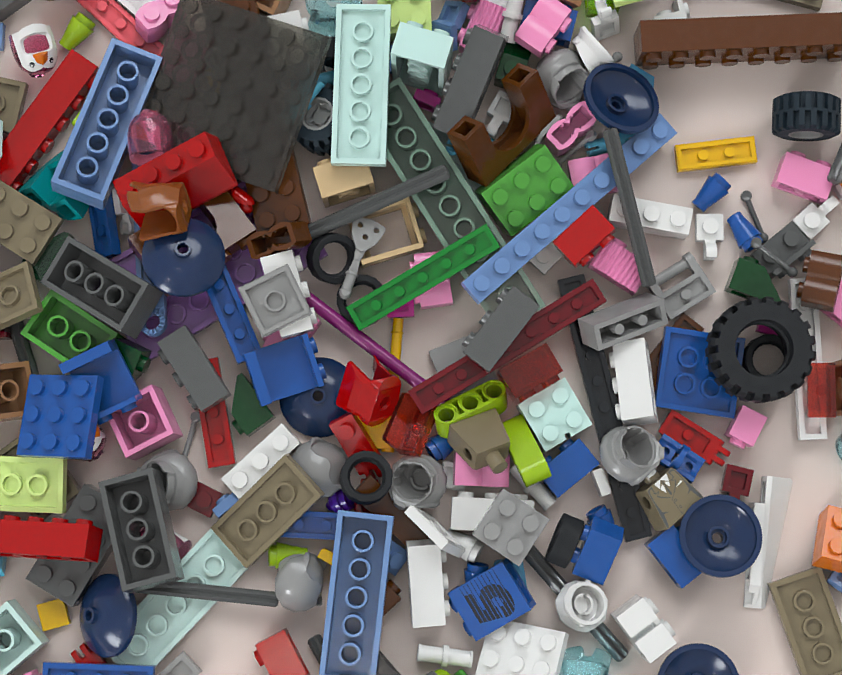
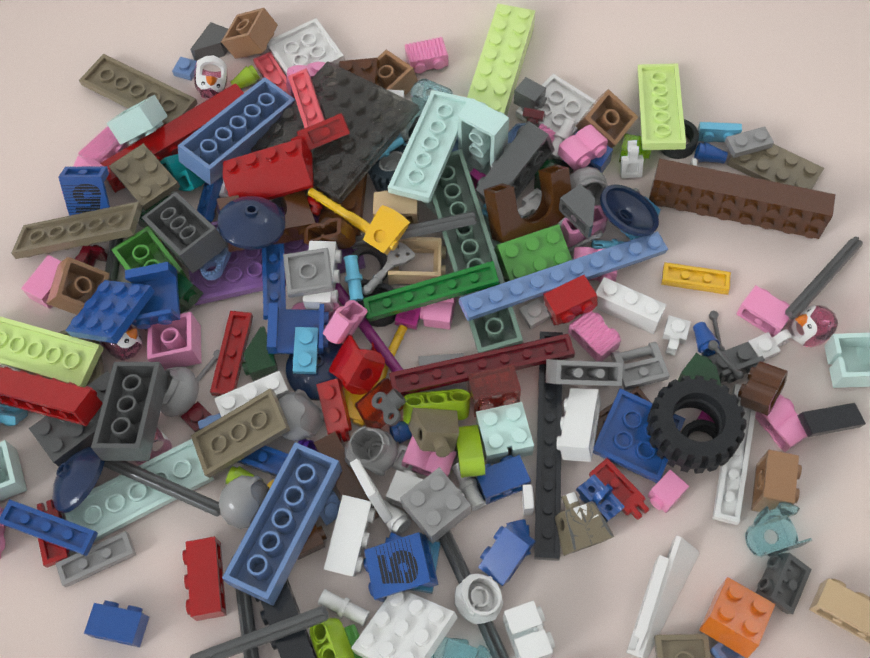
camera: 20 degrees right, 20 degrees down
(53, 614) = (39, 470): yellow tile -> none
(148, 133) = (261, 133): clear pink piece -> none
(158, 196) = (256, 171): dark orange piece -> none
(184, 64) = (306, 98): none -> coral tile
(193, 369) = (228, 313): dark grey brick -> none
(222, 109) = (323, 131): none -> red hinge
(303, 390) = (305, 350): none -> medium azure plate
(326, 285) = (353, 277): none -> medium azure pin
(338, 346) = (344, 322): none -> bright pink brick
(341, 218) = (384, 229): none -> yellow piece
(380, 462) = (337, 414): black tyre -> none
(423, 429) = (390, 404): none -> dark grey piece
(499, 328) = (479, 343): dark grey brick -> none
(564, 540) = (479, 536): black tyre -> none
(565, 118) = (579, 209): none -> dark grey slope
(590, 49) = (615, 173): white hat -> none
(629, 207) = (613, 286): dark grey axle -> none
(630, 453) = (559, 476): light grey helmet -> none
(668, 553) = (576, 583): blue brick -> none
(711, 192) = (685, 302): blue cone -> none
(733, 523) = (628, 560): dark blue dish -> none
(736, 481) = (648, 538): dark red plate -> none
(806, 116) = (778, 262): black wheel -> none
(821, 391) = (742, 478): clear red panel -> none

